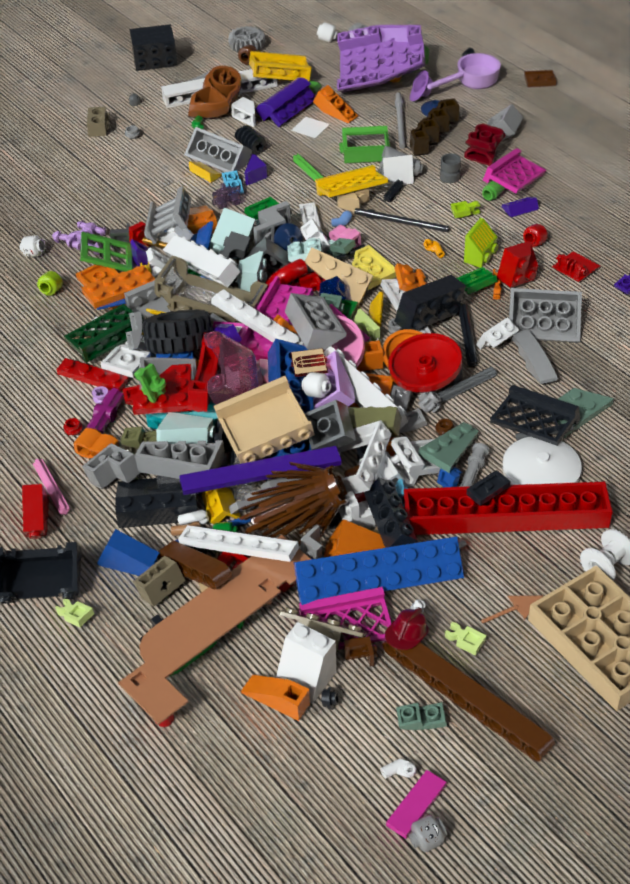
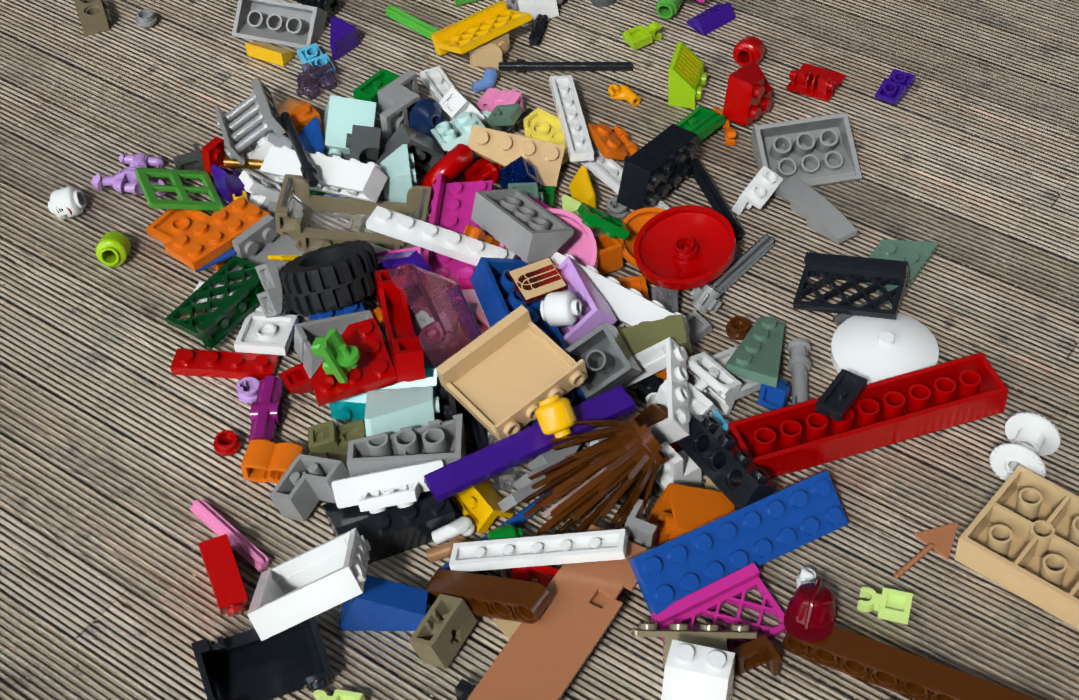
camera: 15 degrees left, 0 degrees up
(80, 528) = (309, 584): none -> white window
(154, 477) = (384, 488): none -> white bracket
(188, 254) = (307, 168): none -> black bar
(279, 455) = (555, 416): none -> yellow head
(378, 336) = (595, 218): none -> green plate
(386, 257) = (571, 119): none -> white plate

